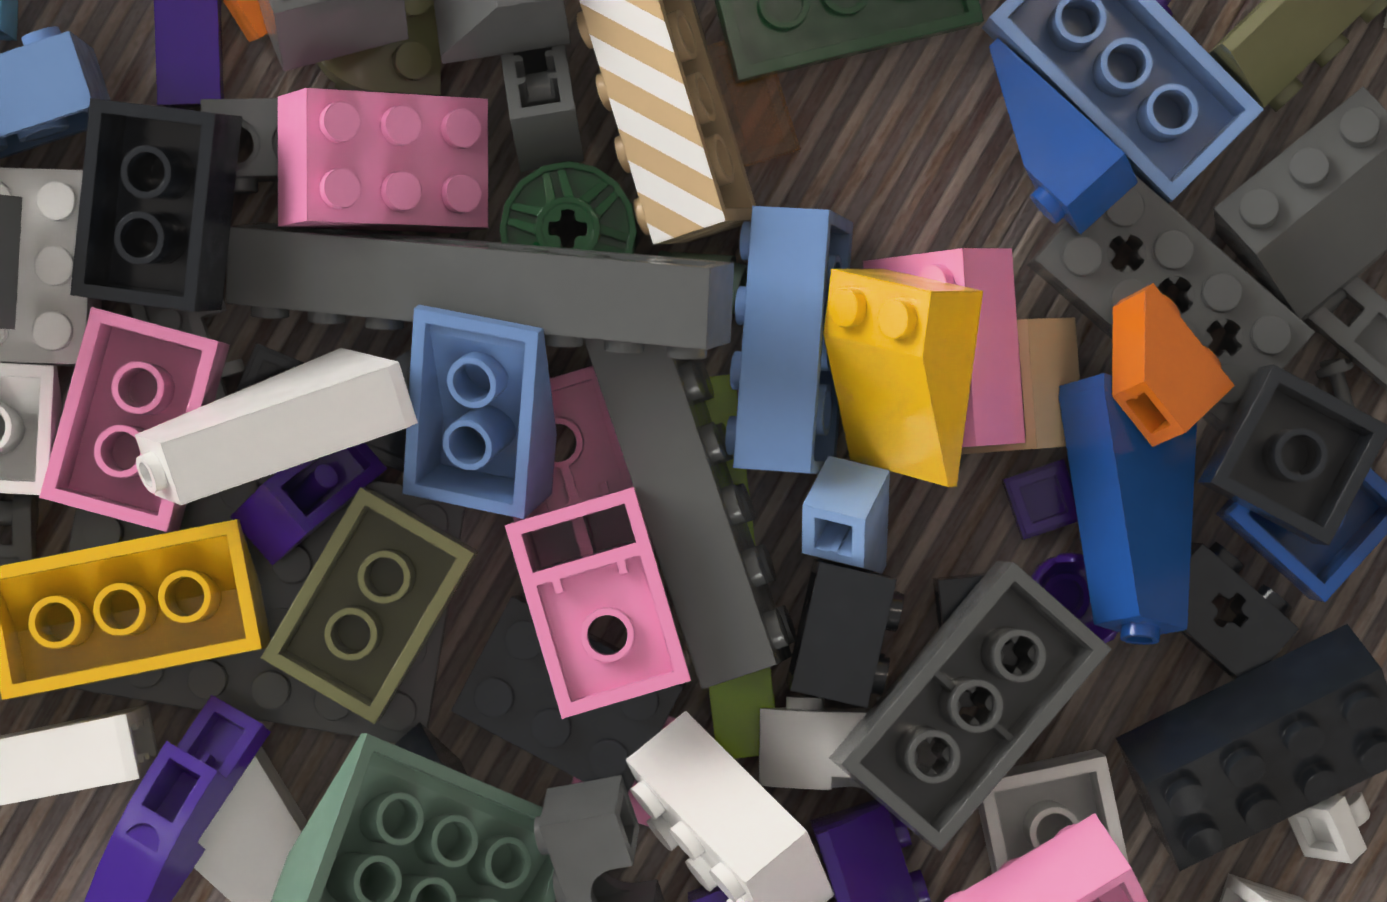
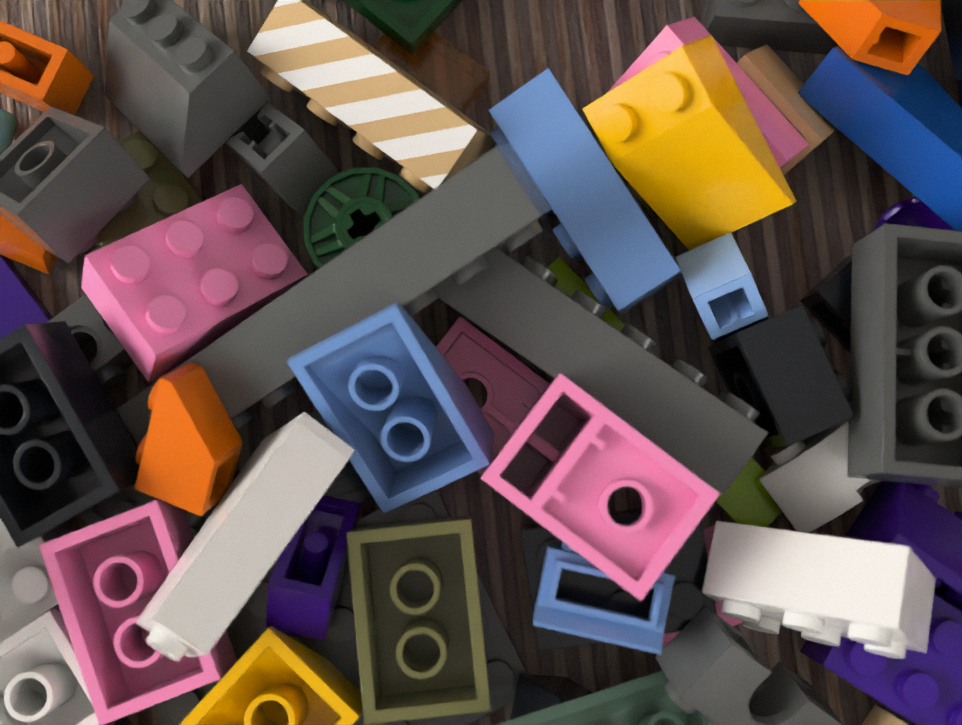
camera: 35 degrees left, 5 degrees down
(278, 314) = (188, 444): none -> orange slope
(517, 716) = (595, 621): none -> medium blue window
(1041, 499) = (834, 190): dark purple tile -> none

